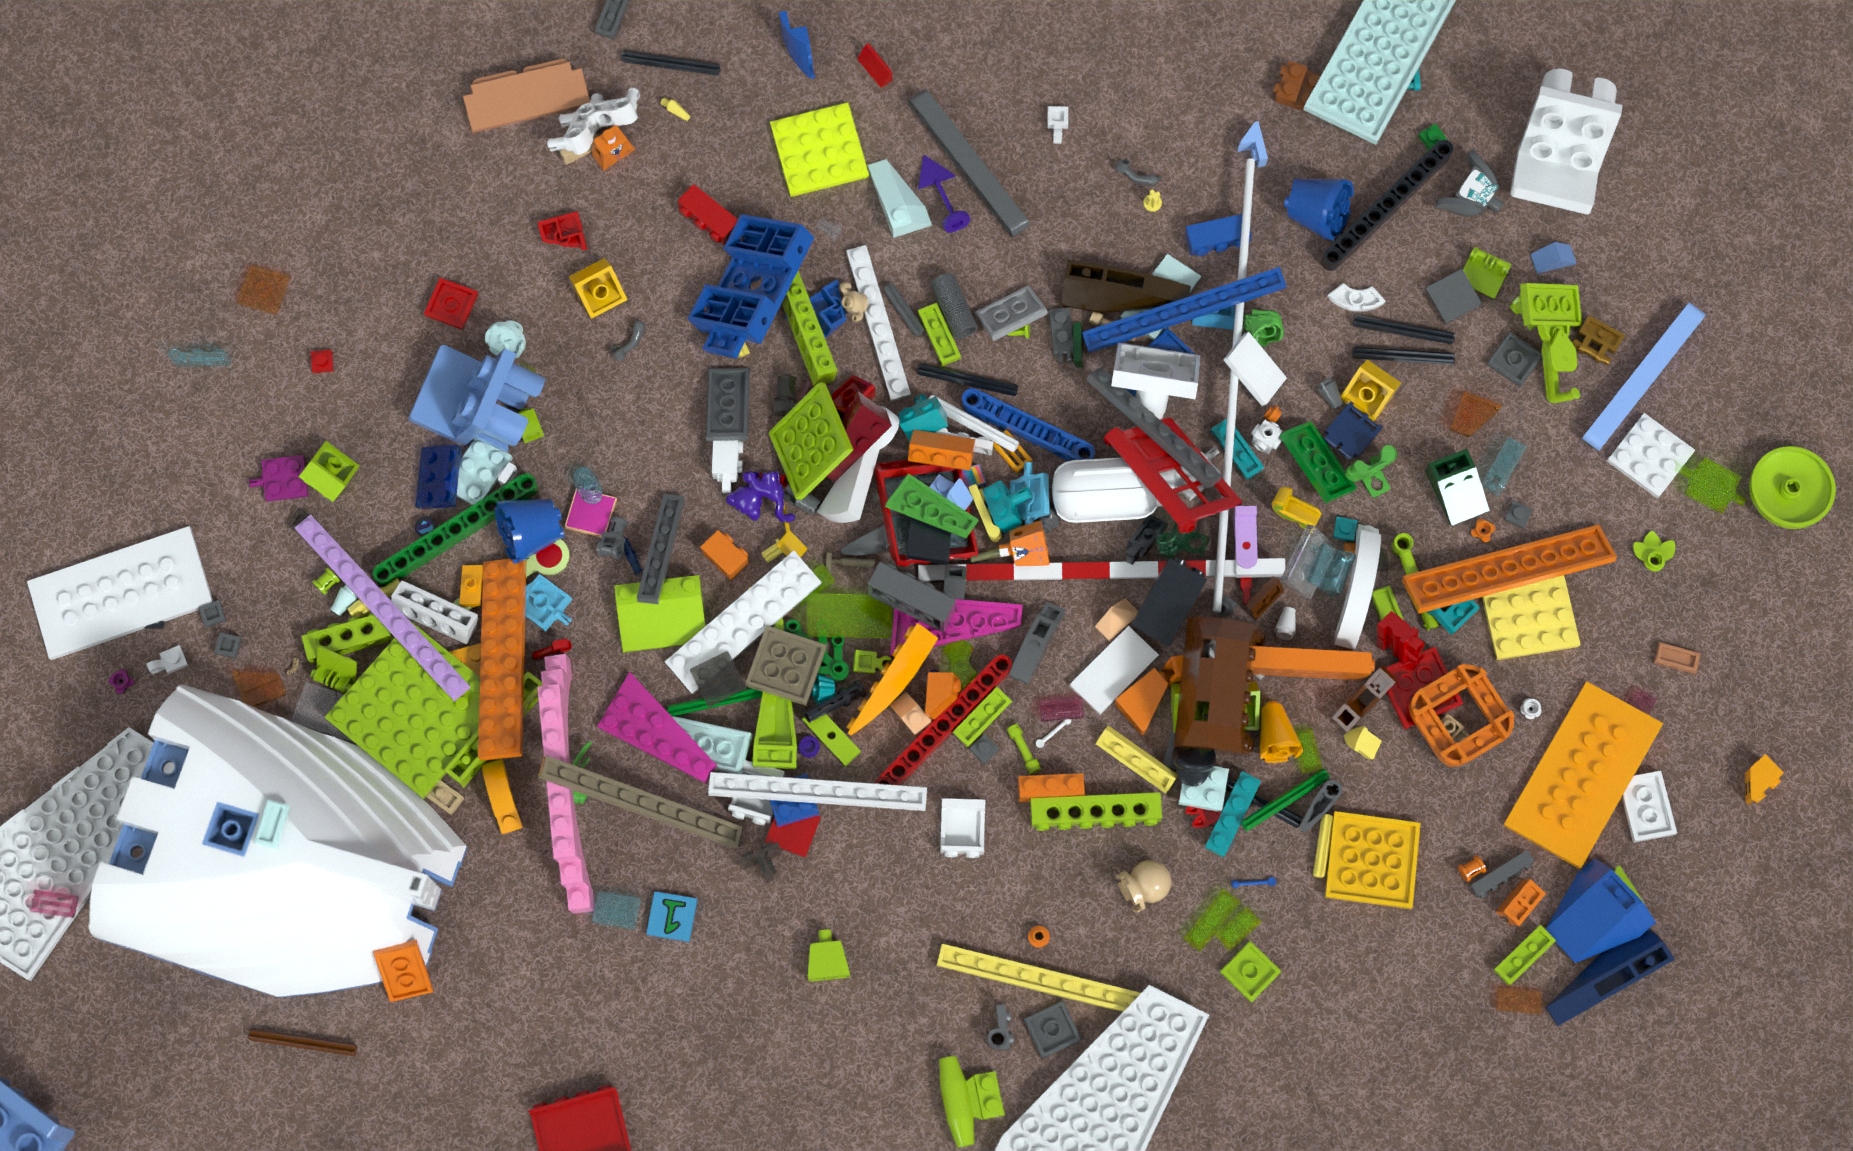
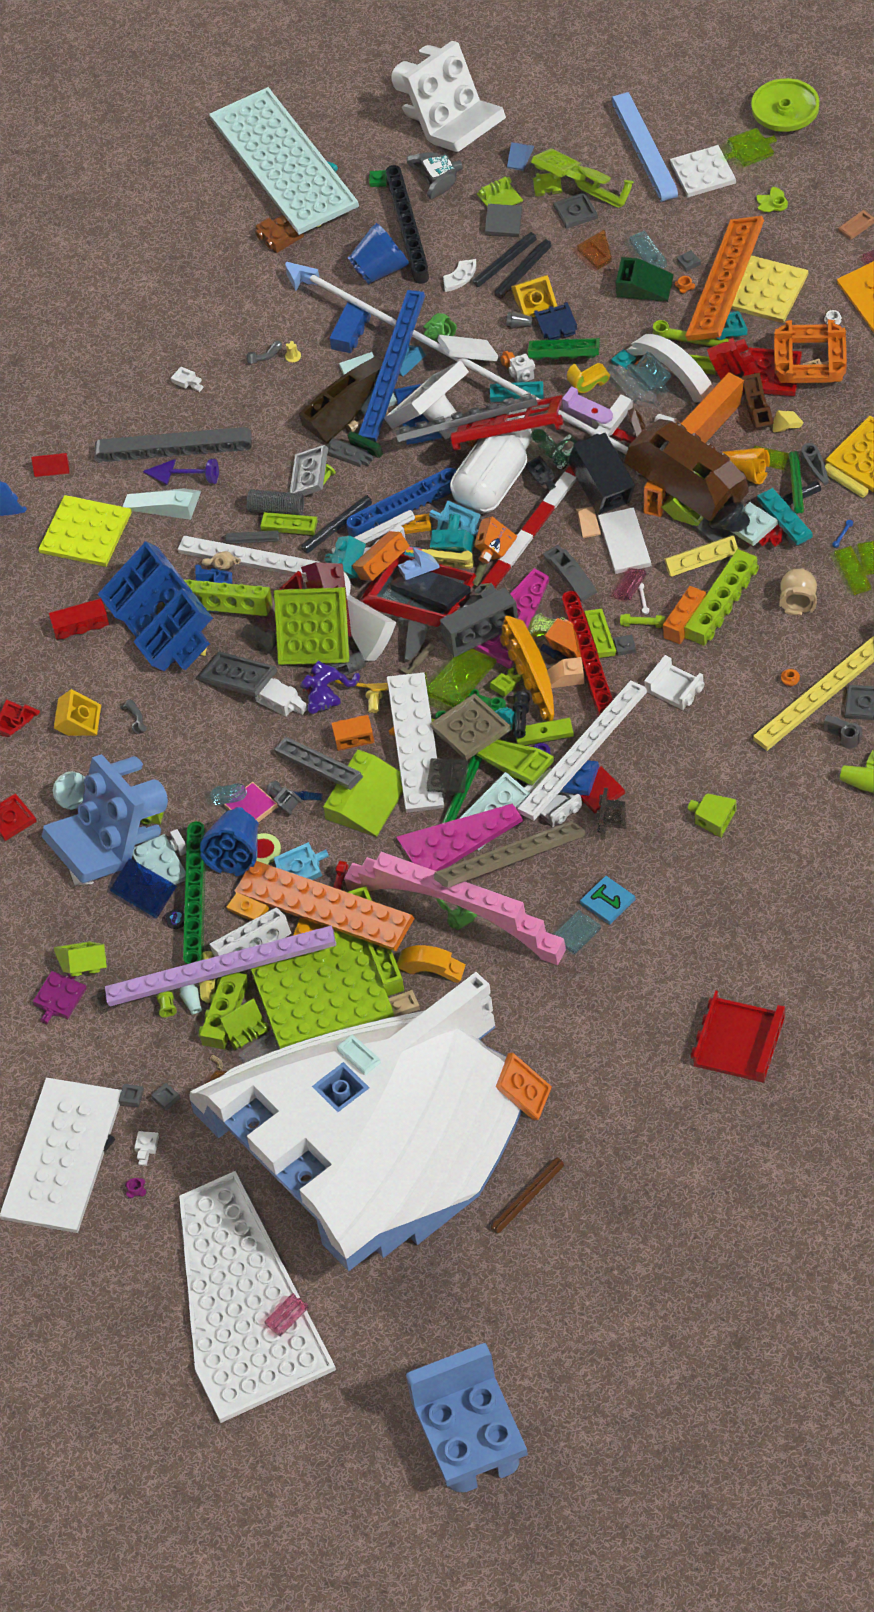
camera: 50 degrees left, 20 degrees down
(927, 505) = (418, 578): bright green wing -> none
(1142, 699) = (661, 531): orange slope -> none
(1364, 472) = (591, 323): bright green piece -> none
(1601, 335) = (598, 154): pearl gold plate -> none

